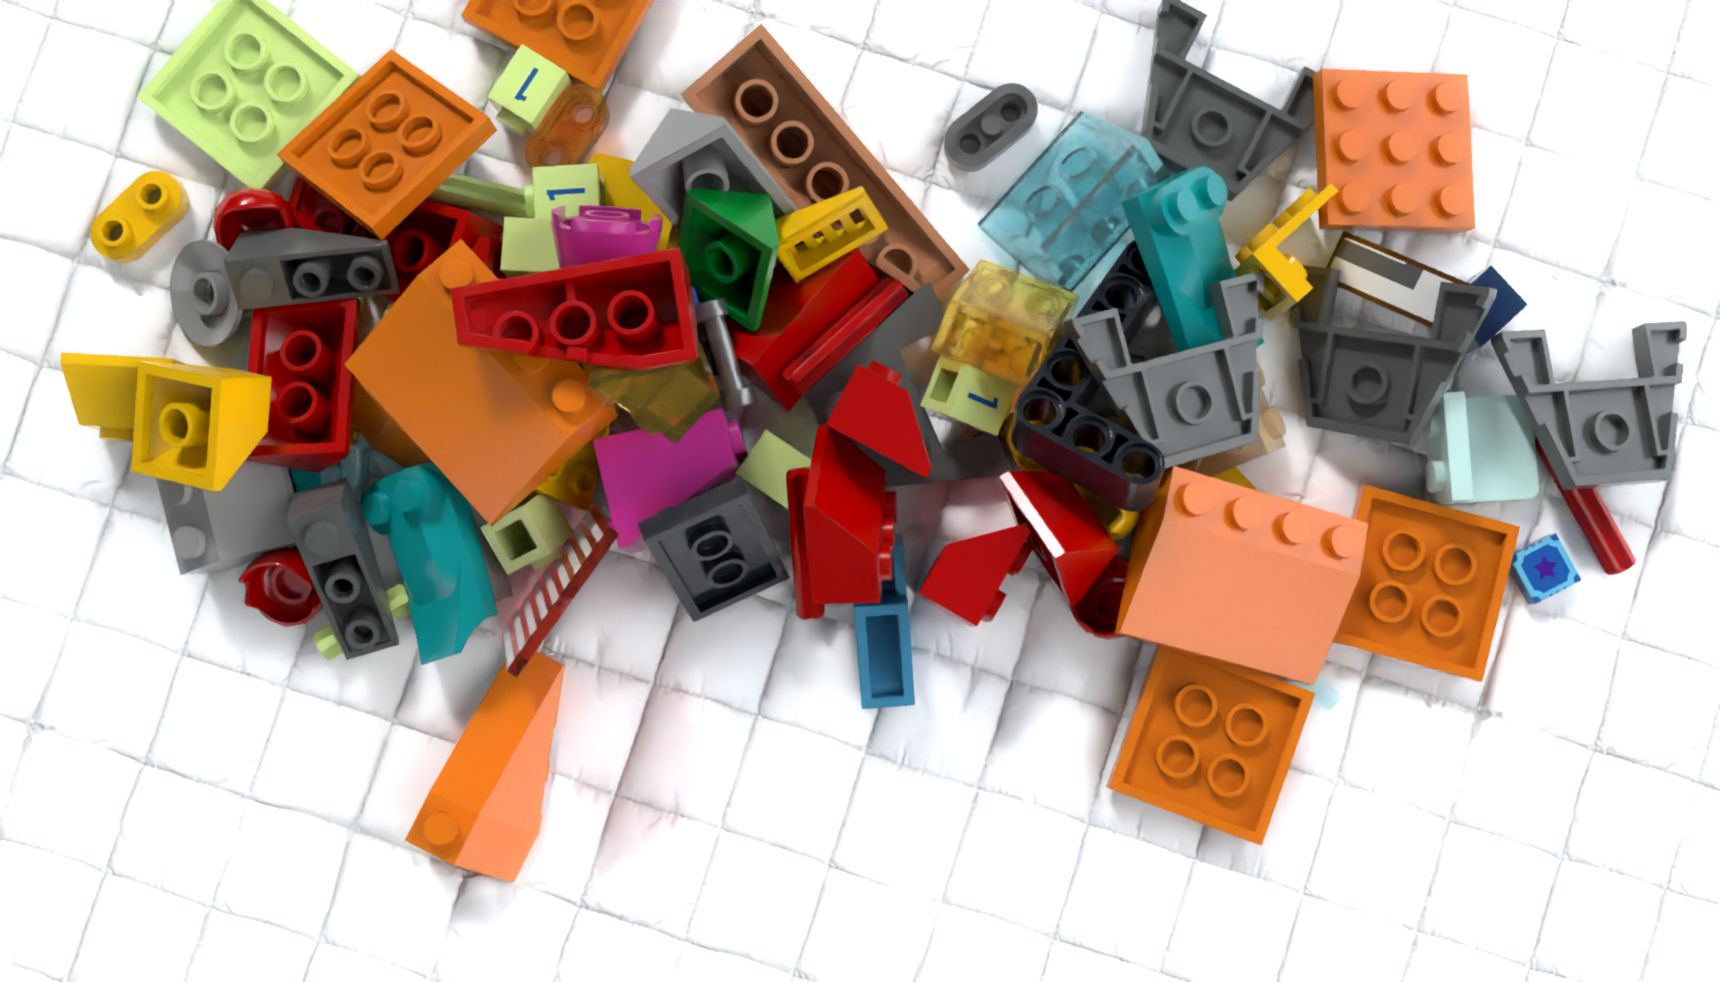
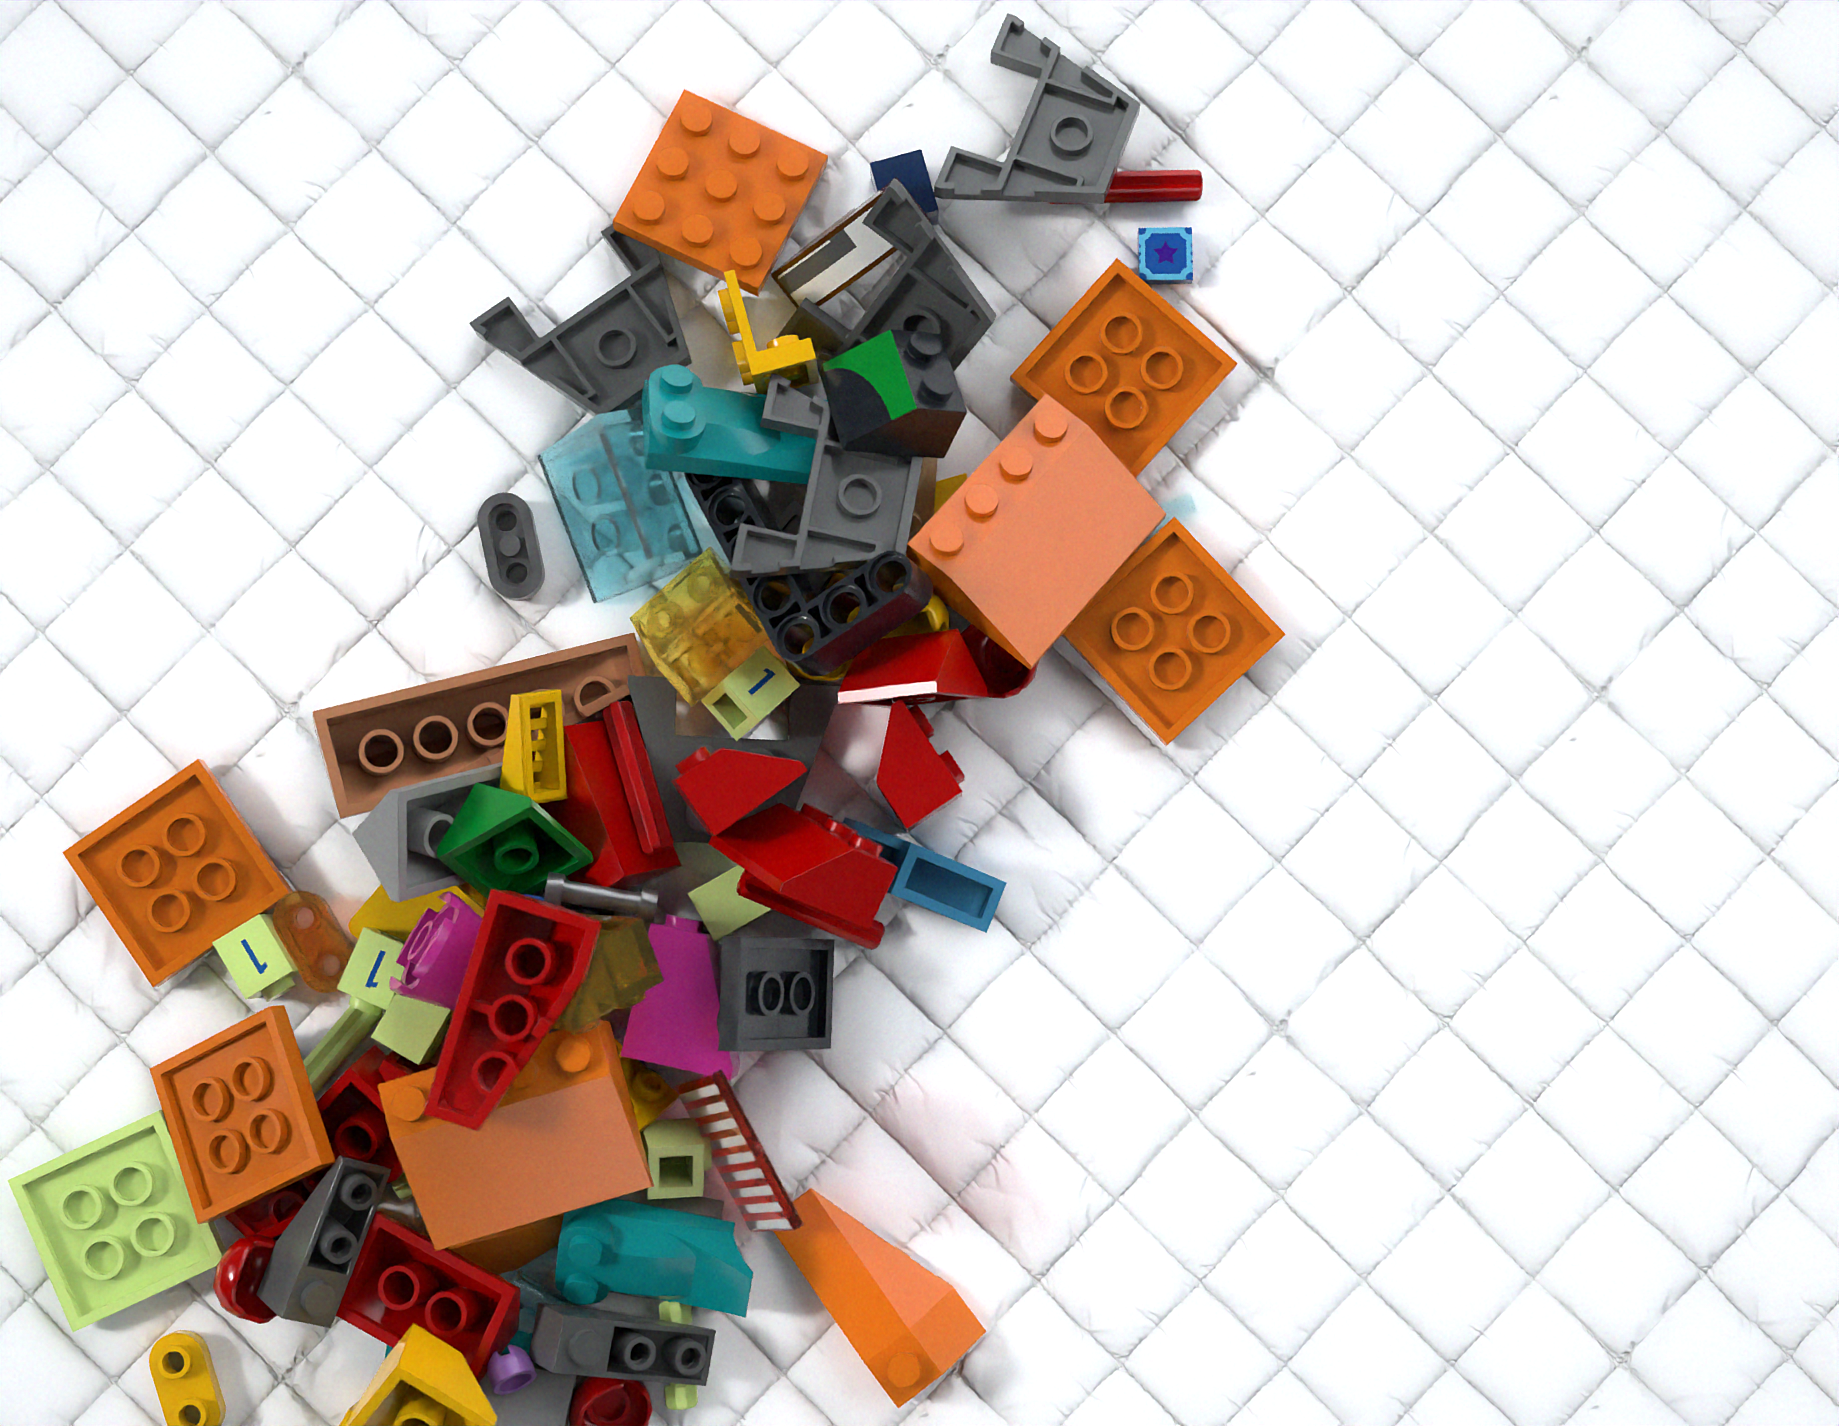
camera: 60 degrees left, 0 degrees up
(203, 294) = (295, 1356): light grey dish -> none
(274, 483) = (510, 1371): none -> medium lavender hinge
(1299, 390) = (895, 395): none -> black slope
(1480, 450) = (1031, 257): light aqua bracket -> none

